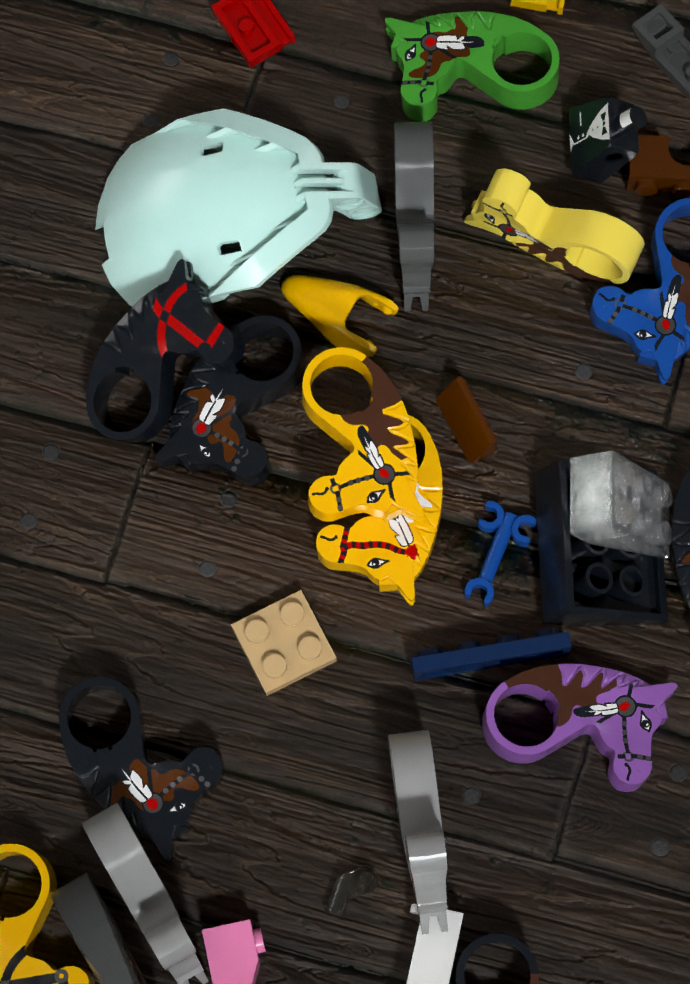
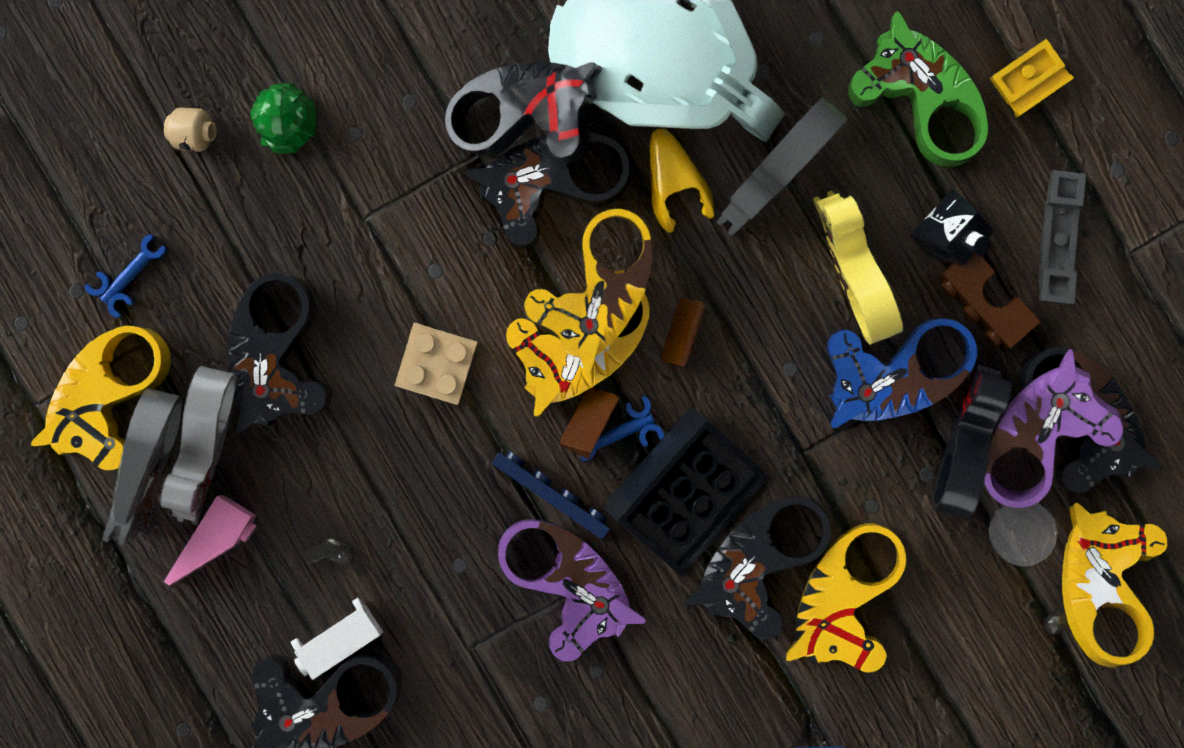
camera: 45 degrees right, 15 degrees up
(420, 822) = (404, 558): light grey animal -> none
(462, 564) = (588, 422): none -> reddish brown slope
(619, 505) = (717, 482): clear slope -> none

